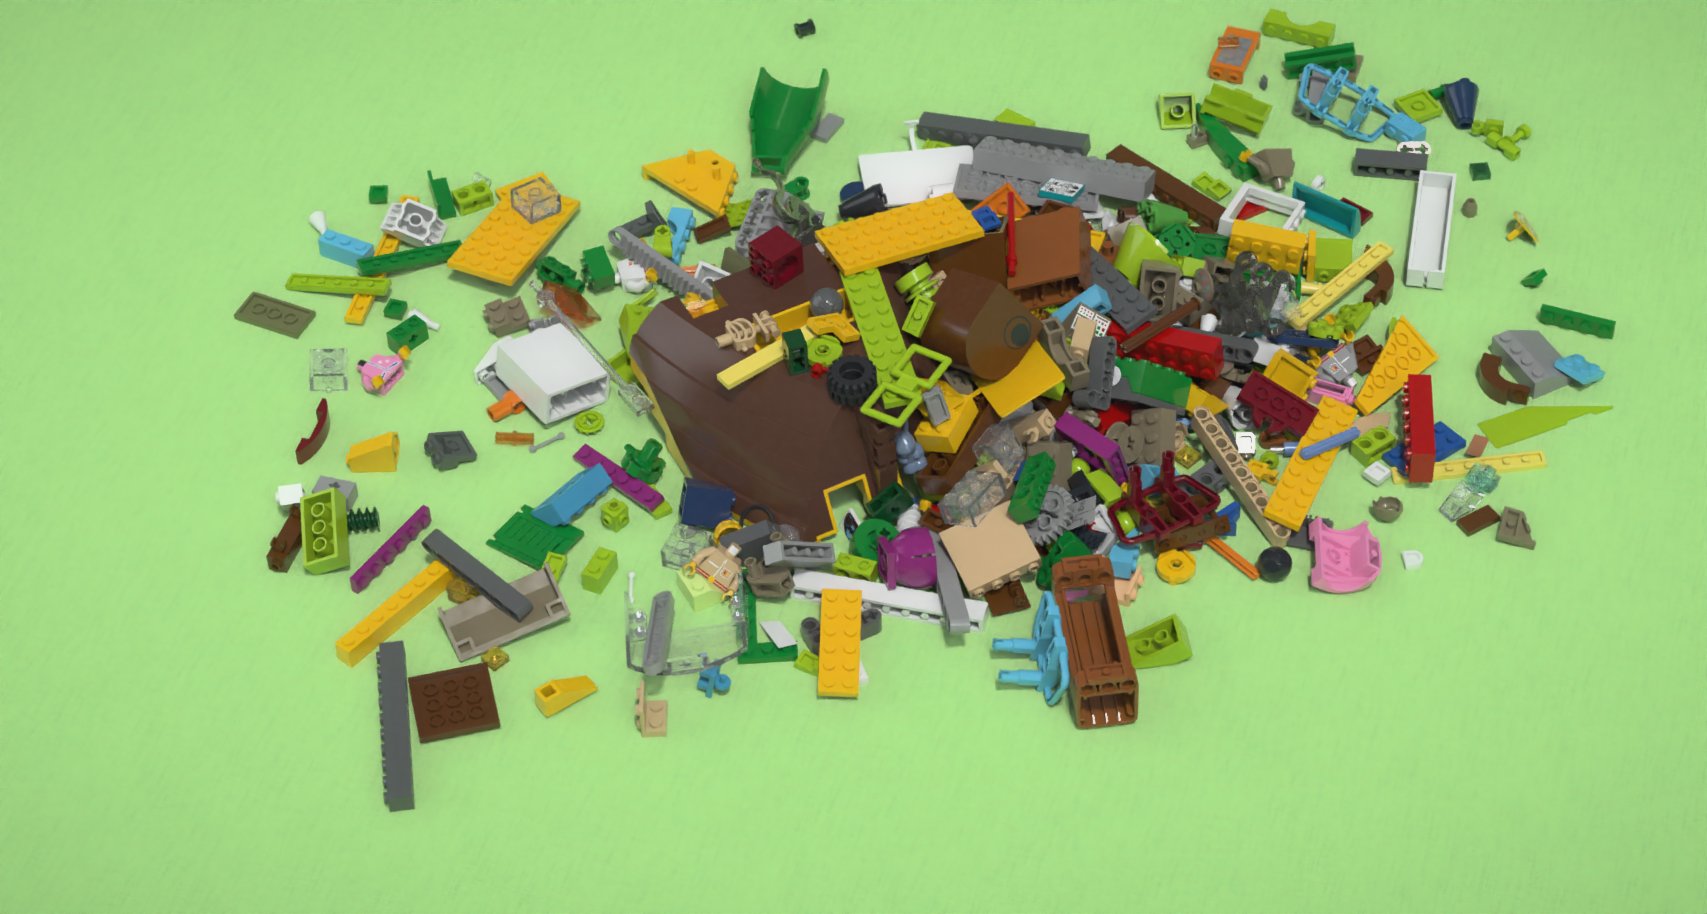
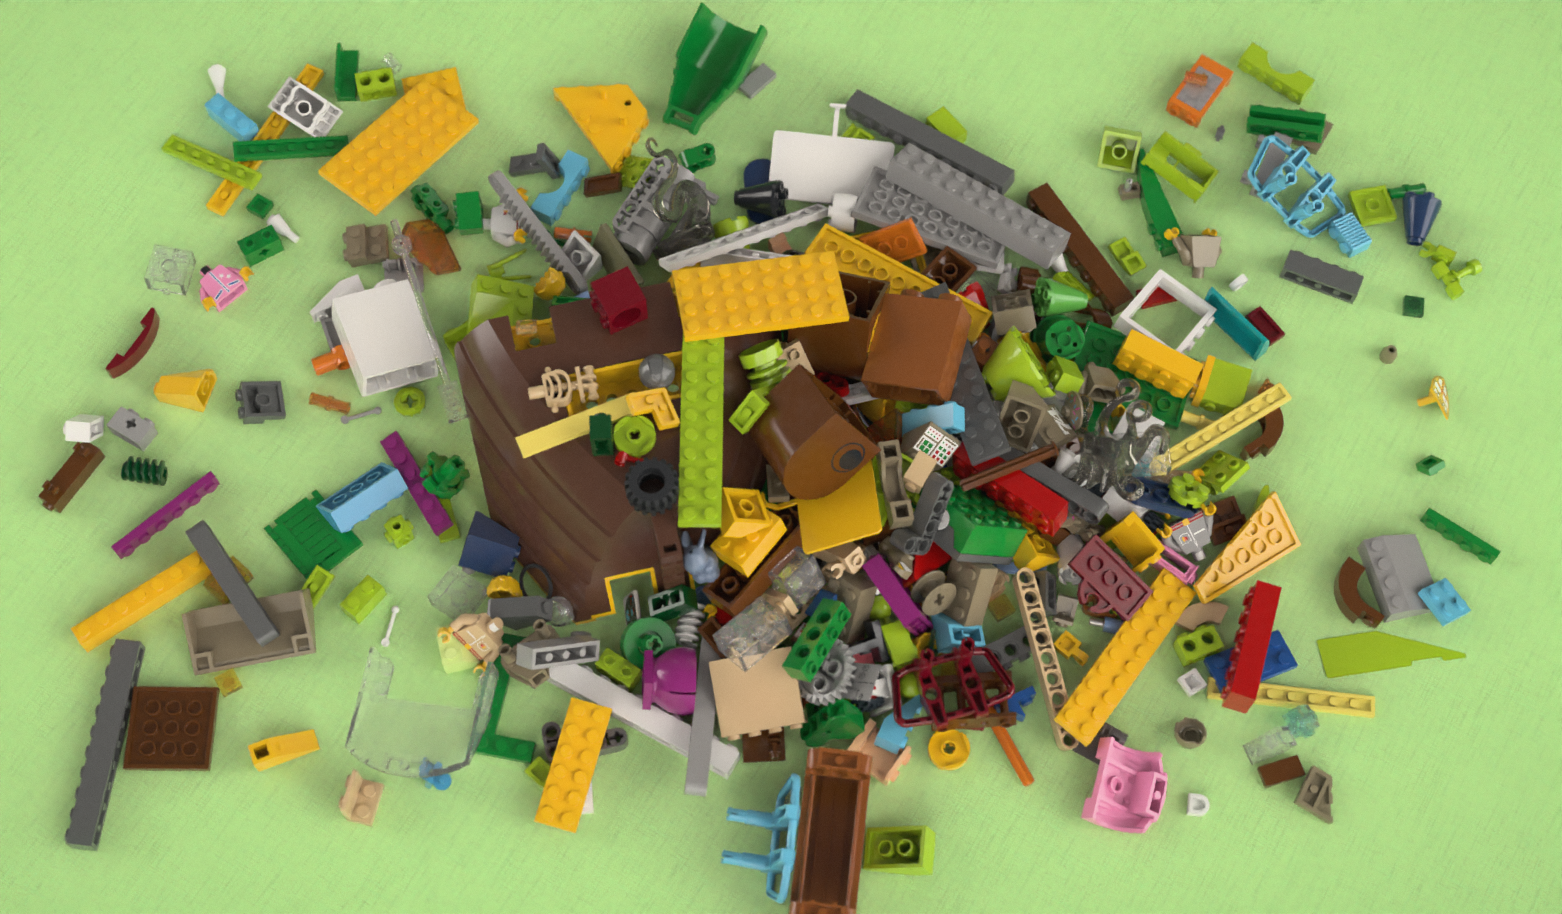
camera: 10 degrees right, 20 degrees up
(275, 315) = (141, 182): olive tile -> none
(324, 531) = (100, 483): lime brick -> none
(378, 194) = (285, 55): green plate -> none
(536, 200) = (427, 116): clear brick -> none
(658, 633) = (390, 711): light grey gear -> none
(663, 241) = (542, 198): lime piece -> none
(778, 633) = (519, 728): white sticker -> none
(906, 385) = (705, 510): lime bar -> none
(936, 405) = (735, 532): light grey tile -> none
(986, 218) = (864, 283): blue slope -> none
(1011, 258) = (875, 345): red bar -> none
(1061, 190) = (966, 235): tile -> none
(1270, 456) = (1084, 635): lime plate -> none
(1274, 563) = (1050, 778): black piece -> none
(1329, 443) = (1151, 639): medium blue axle -> none
(1414, 145) = (1351, 258): beam -> none
(1431, 229) = (1339, 376): white piece -> none
(1477, 445) = (1307, 671): nougat sticker -> none

